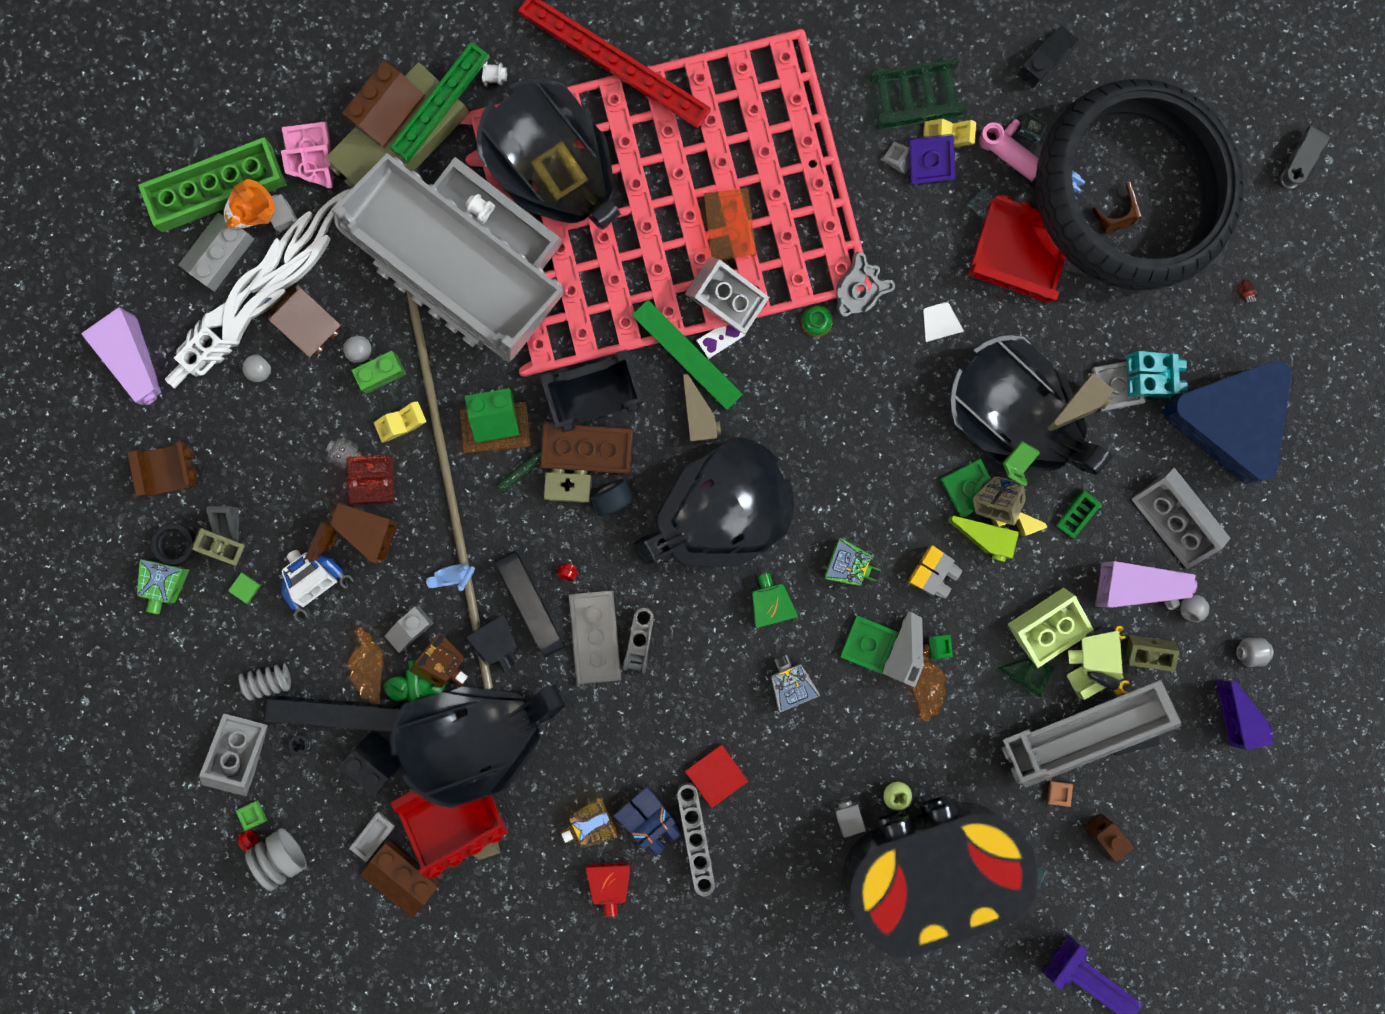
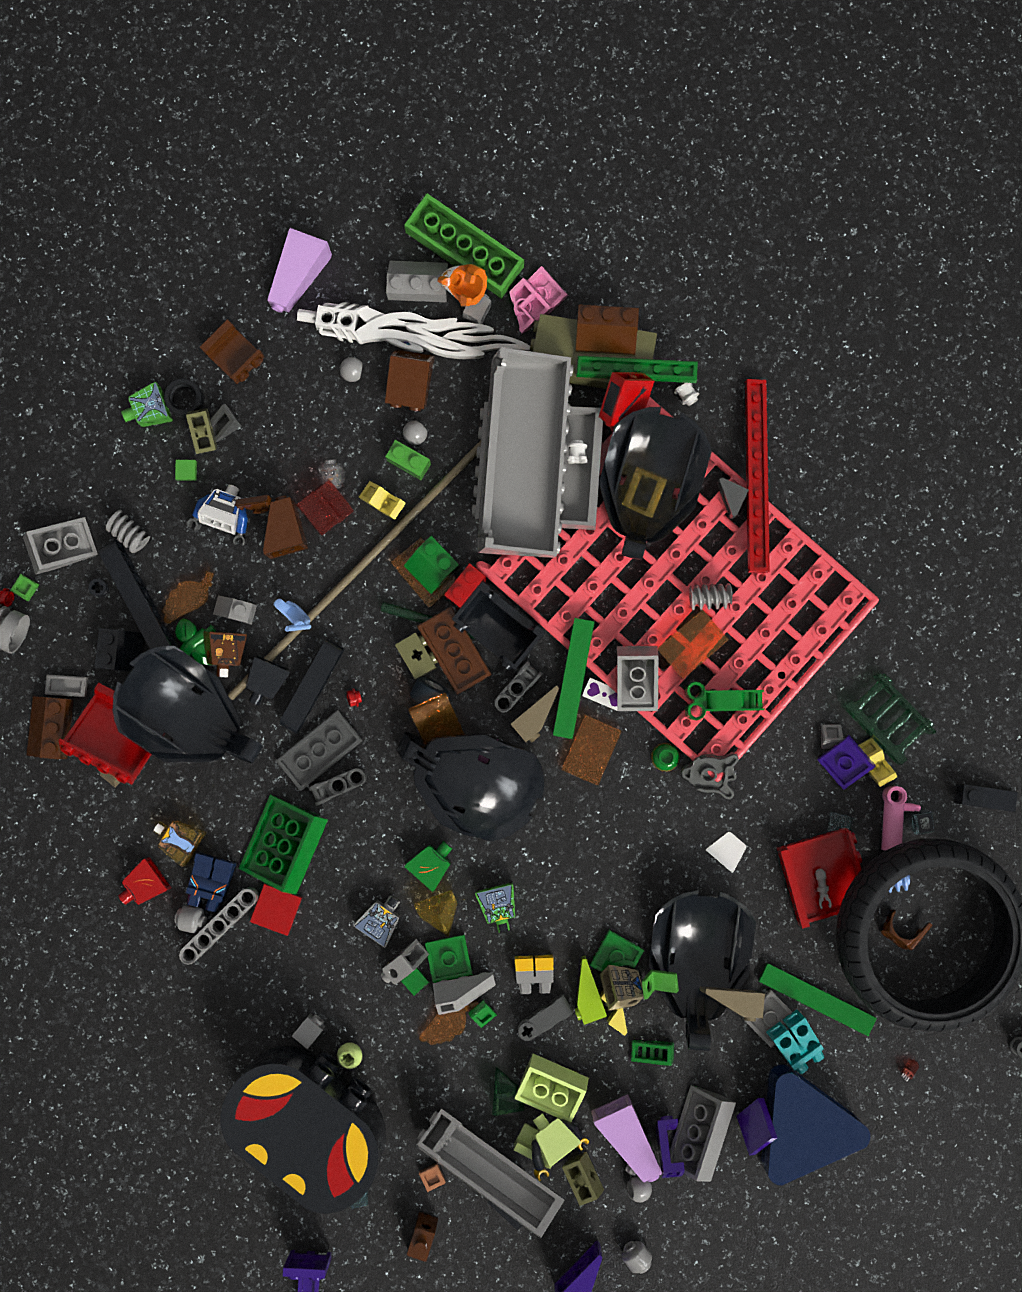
camera: 60 degrees right, 0 degrees up
(457, 127) = (624, 395): none -> red brick
(534, 397) = (464, 586): none -> red brick
(617, 95) = (732, 496): none -> dark grey slope
(638, 506) = (436, 718): none -> clear orange tile
(657, 400) = (522, 678): none -> dark grey piece
(660, 729) = (283, 845): none -> green slope
(671, 862) = (190, 919): none -> light grey head
(696, 176) = (710, 596): none -> light grey piece
(764, 384) = (591, 750): none -> clear orange tile
(799, 232) = (722, 700): none -> green piece
(819, 624) = (438, 911): none -> clear yellow slope
(846, 687) = (400, 967): none -> light grey torso
(868, 689) = (415, 981): none -> green tile
(982, 590) = (545, 1017): none -> dark grey piece
(1032, 257) = (822, 888): none -> light grey piece
(1129, 331) = (817, 999): none -> green tile
(1173, 559) = (668, 1169): none -> dark purple panel
(1208, 461) = (756, 1126): none -> dark purple tile

